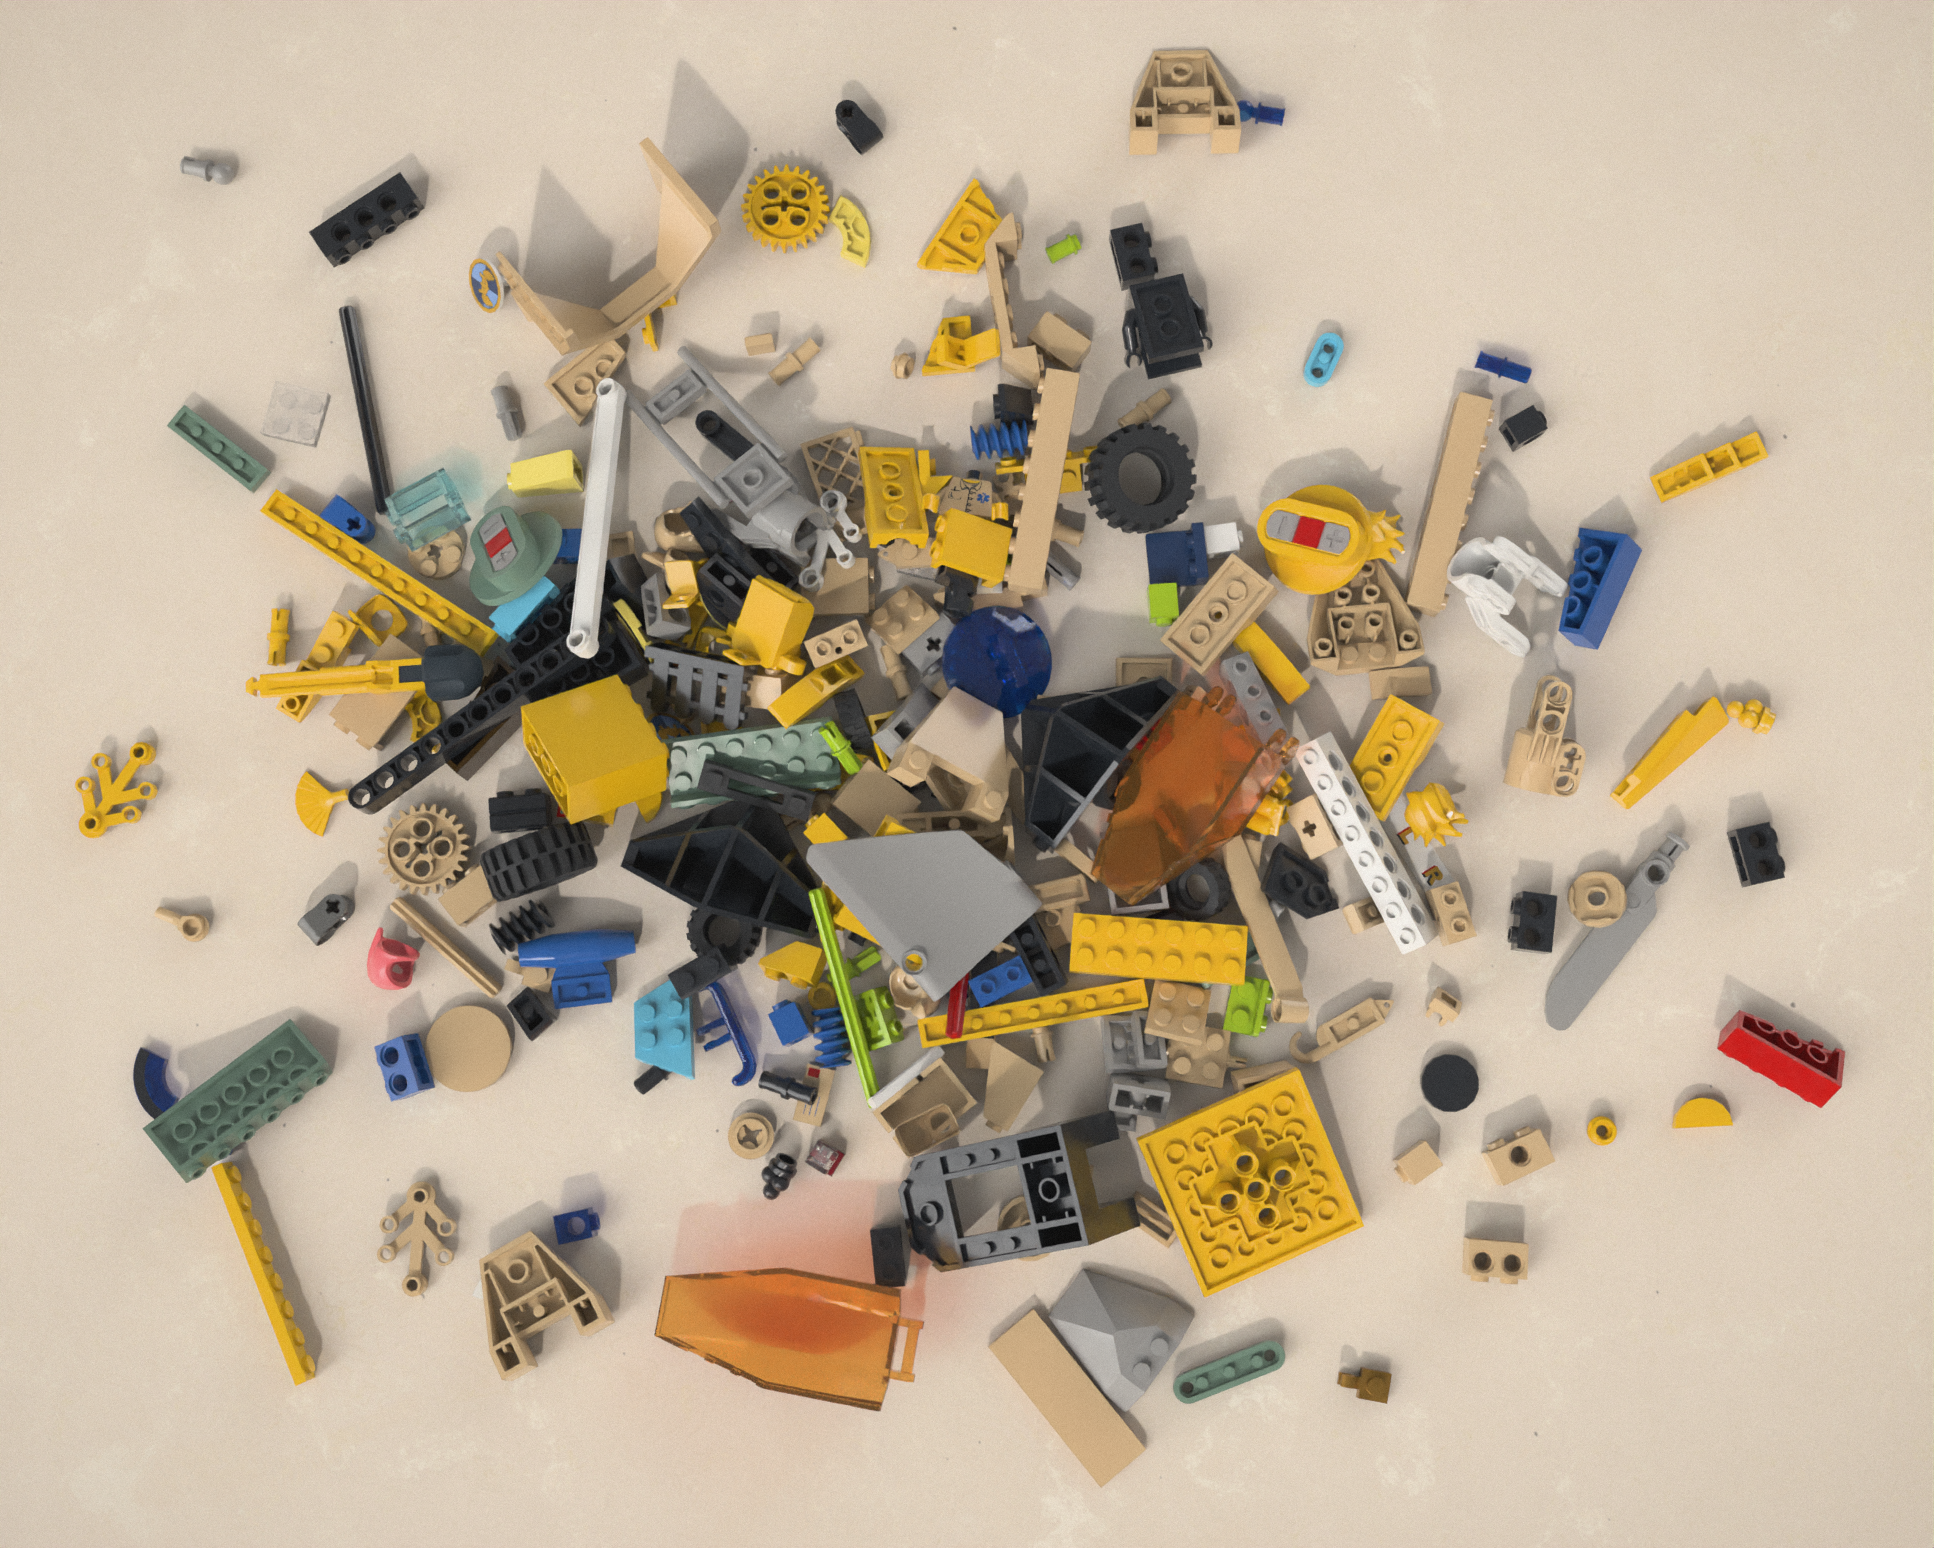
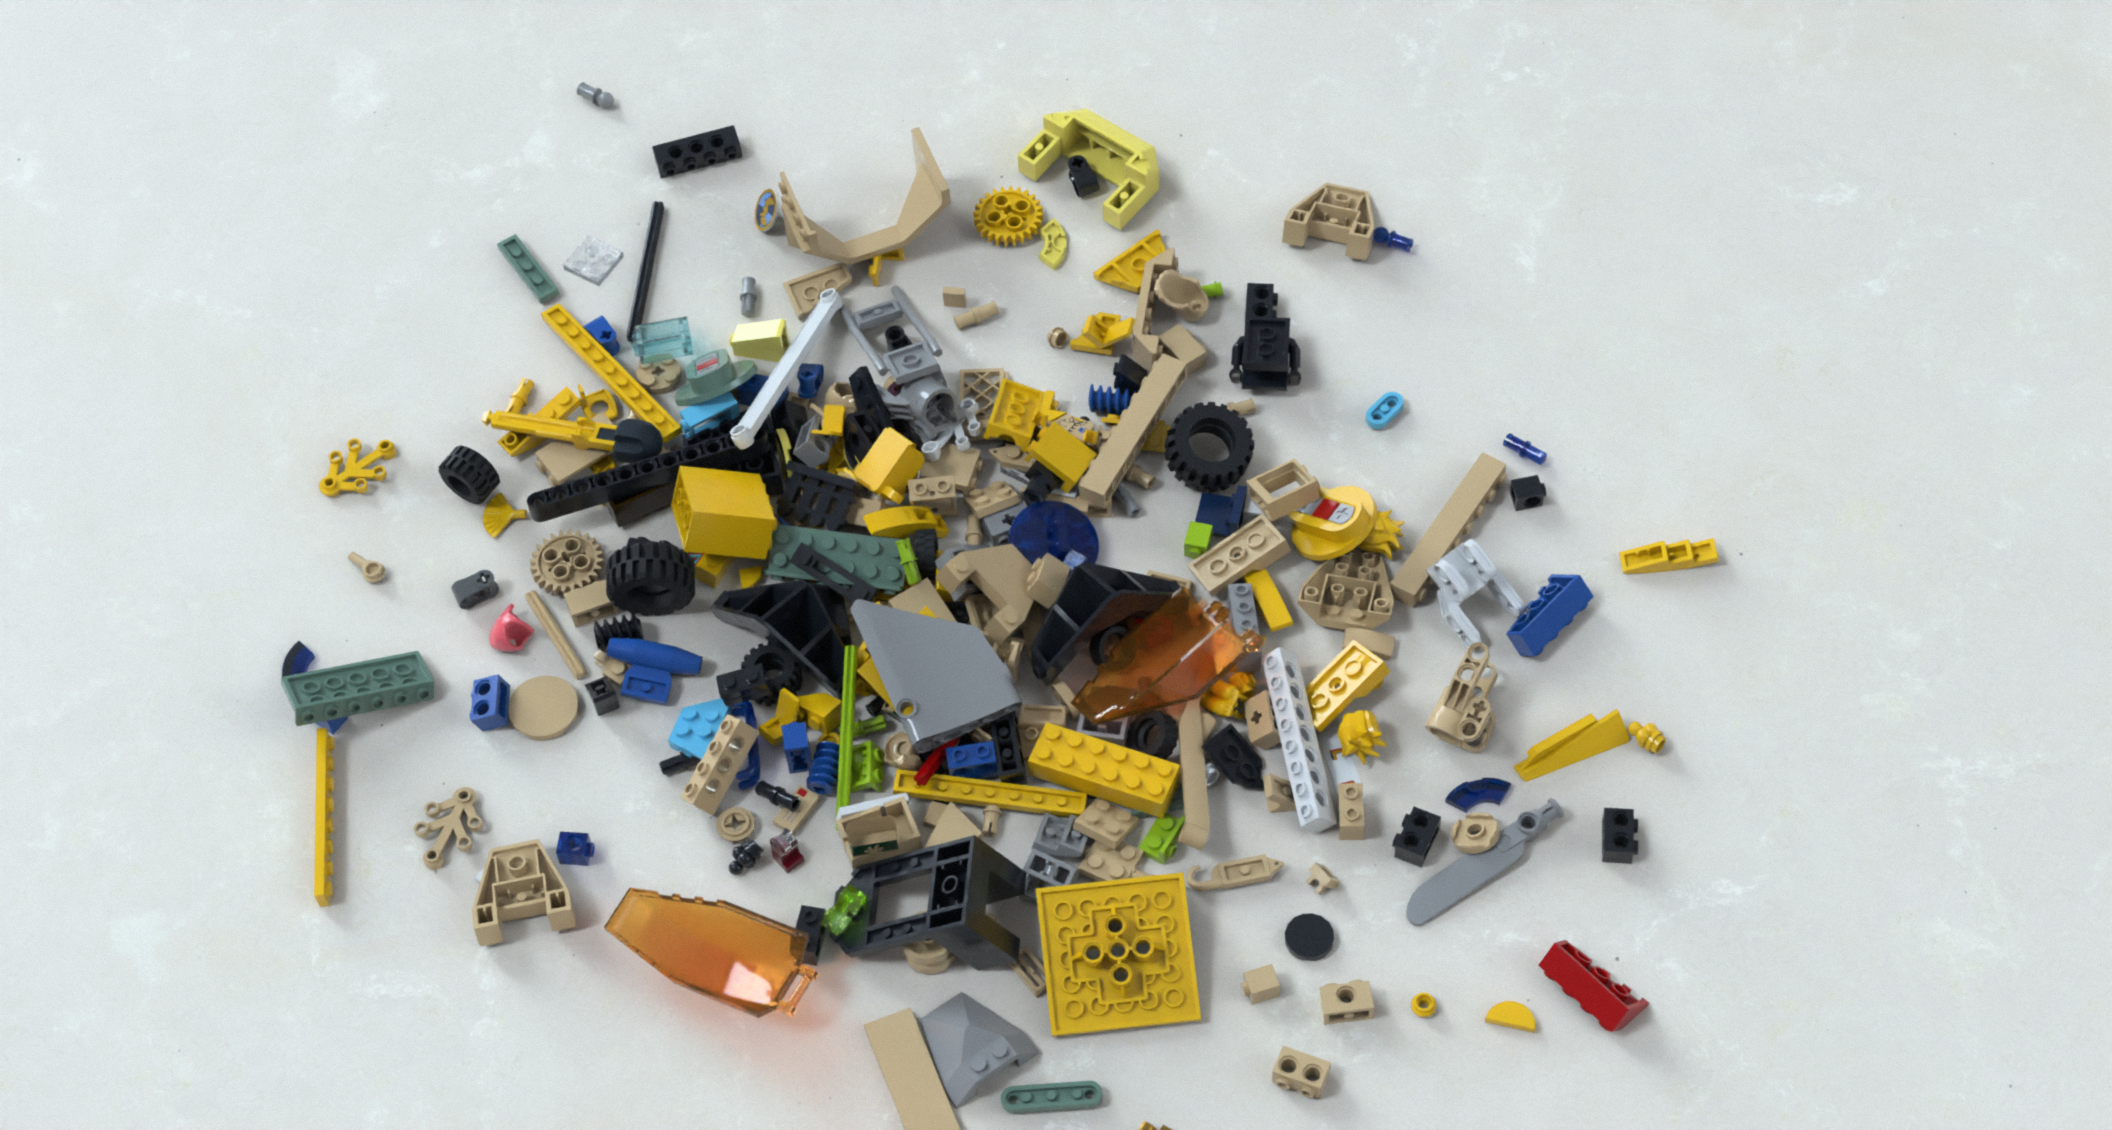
camera: 15 degrees right, 25 degrees down
(260, 771) = (469, 474): none -> black tyre
(626, 514) = (810, 379): none -> blue piece
(710, 1078) = (713, 779): none -> tan brick
(758, 991) = (786, 713): none -> yellow bracket
(881, 86) = (1109, 152): none -> light yellow wedge
(927, 1211) = (850, 900): none -> clear neon green hinge
(1013, 724) = (1047, 580): none -> tan brick
(1038, 271) = (1182, 295): none -> tan piece
(1238, 499) = (1278, 477): none -> tan window
(1579, 840) = (1477, 792): none -> clear blue tile

